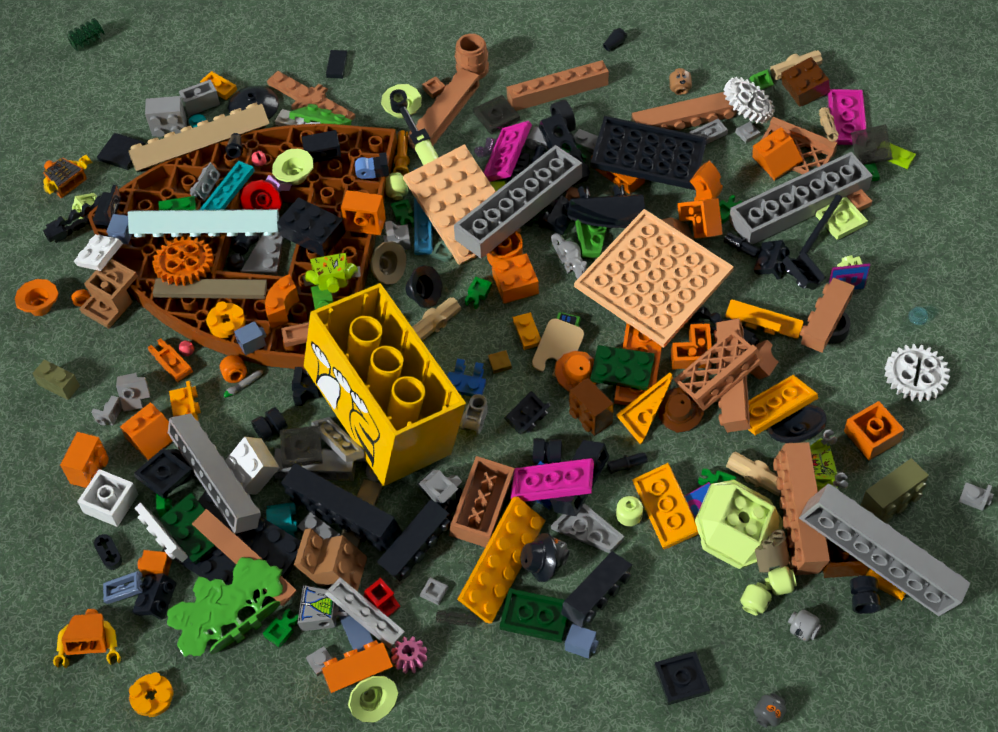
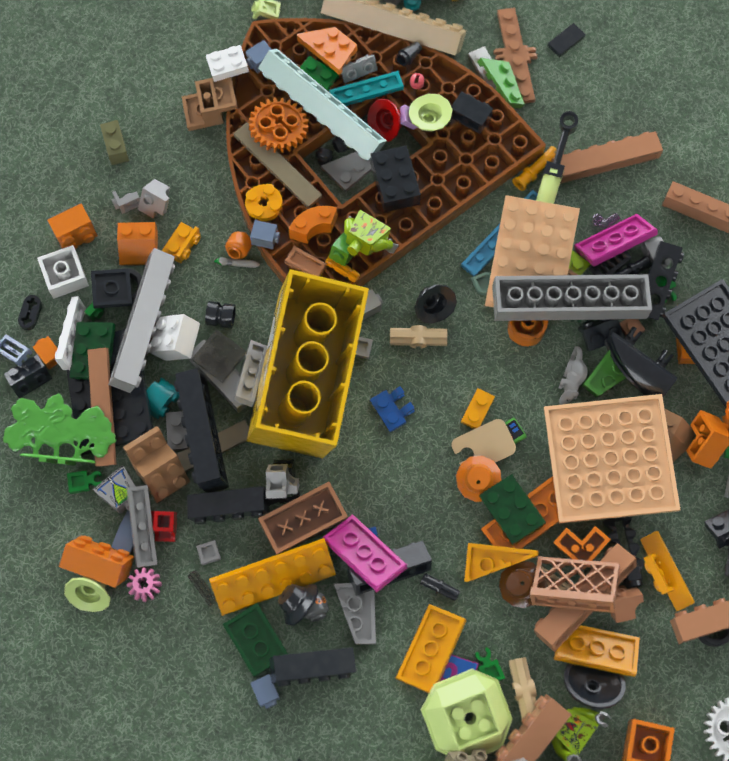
camera: 40 degrees right, 15 degrees up
(36, 297) = (160, 60): orange hat -> none
(58, 231) = (228, 15): black sword -> none
(80, 297) = (189, 87): orange tile -> none
(107, 206) = (270, 28): black panel -> none
(168, 183) = (329, 46): none -> orange wing
(171, 361) = (204, 198): orange hinge -> none
(186, 348) = (223, 199): coral hinge -> none
(254, 94) = (478, 27): black dish -> none
(303, 387) = (268, 304): black brick -> none
(317, 658) = (86, 528): light grey plate -> none
(363, 212) = (442, 201): orange brick -> none
(372, 167) = (492, 165): leg -> none
(388, 262) = (430, 262): dark tan hat -> none
(396, 186) = (499, 192): yellowish green head -> none
(398, 234) = (456, 241): light grey brick -> none
(403, 212) = (485, 221): green plate -> none
(413, 99) = (587, 118): yellowish green hat -> none
(433, 87) = (620, 128): nougat plate -> none
(472, 55) = (674, 128): nougat piece -> none
(474, 417) = (368, 444): light grey piece -> none
(478, 290) = (475, 341): green plate -> none
(496, 114) = (644, 197): clear smoke plate -> none
(499, 361) = (431, 415): pearl gold tile -> none
(515, 278) = (510, 357): orange brick -> none
(526, 413) = (407, 478): black bracket -> none
(547, 450) = (389, 523): black wheel -> none
(566, 112) = (692, 247): black tyre -> none
(585, 140) = (691, 283): light grey plate -> none
(591, 407) = (454, 520): reddish brown brick -> none
(629, 511) = (399, 628): yellowish green head -> none
(741, 245) = (718, 491): black axle -> none

